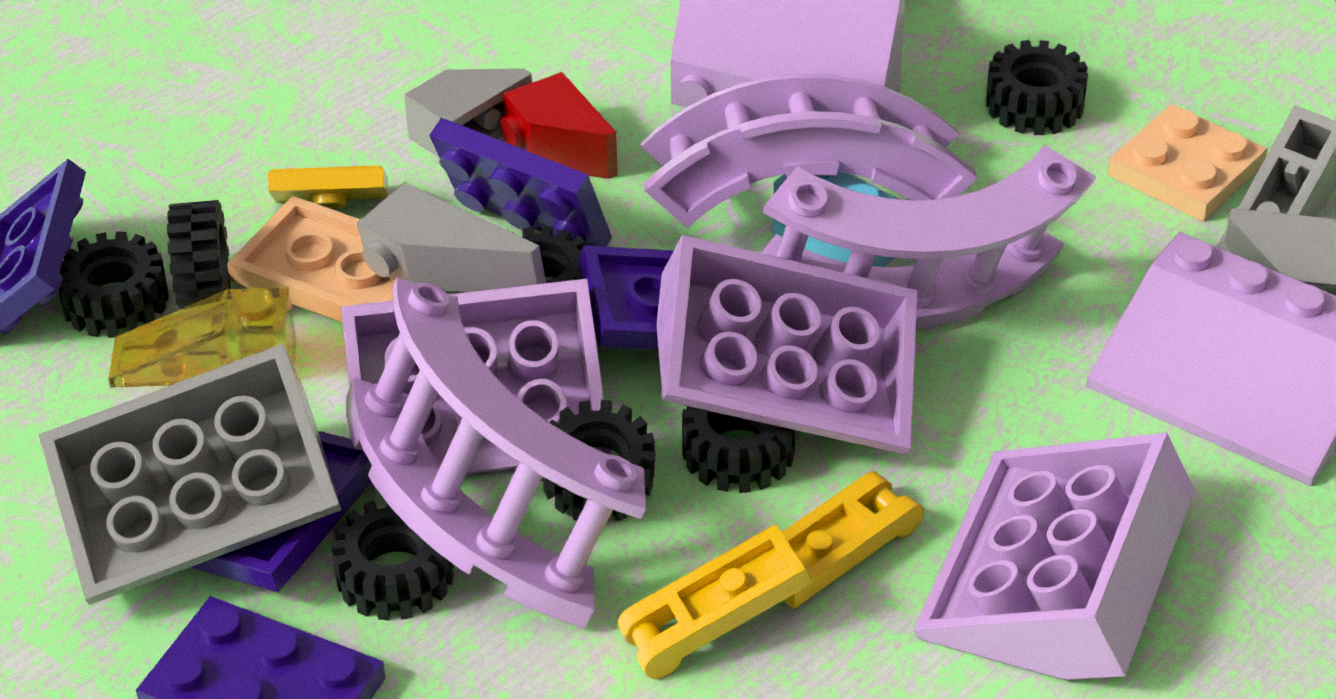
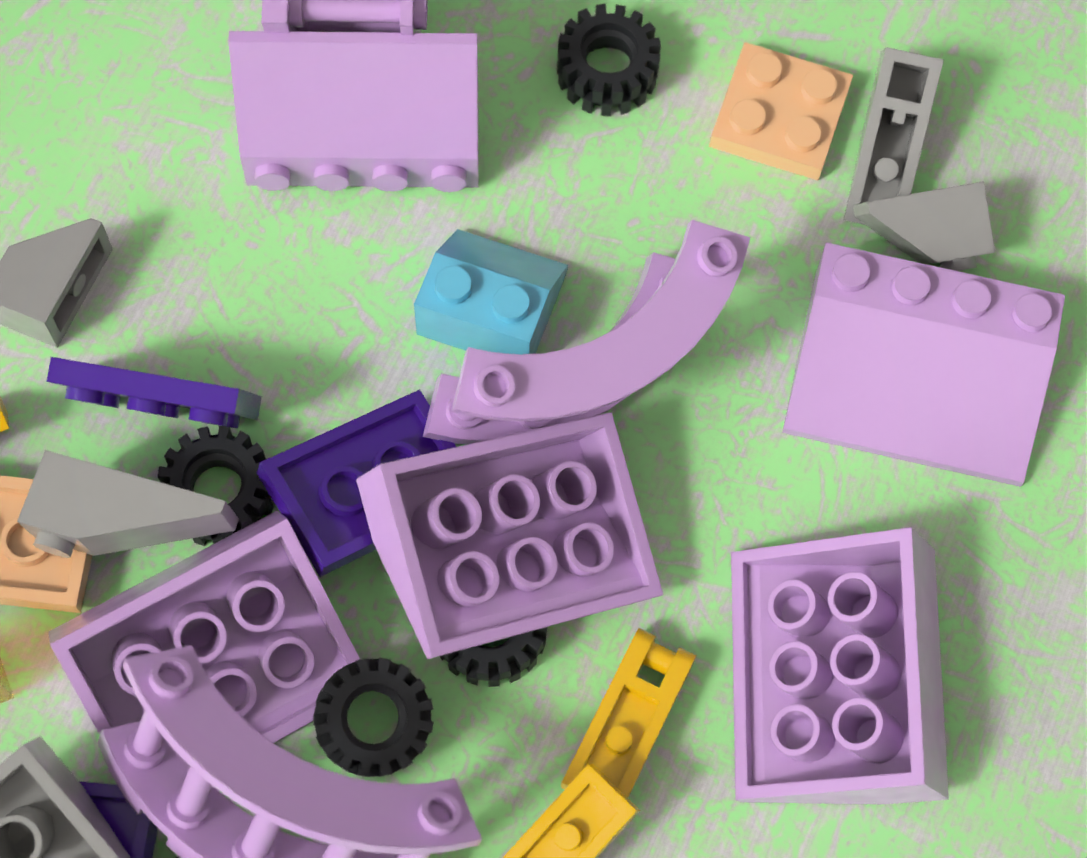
camera: 25 degrees left, 25 degrees up
(560, 125) = (153, 274): red slope -> none
(803, 122) = (443, 266): lavender fence -> none

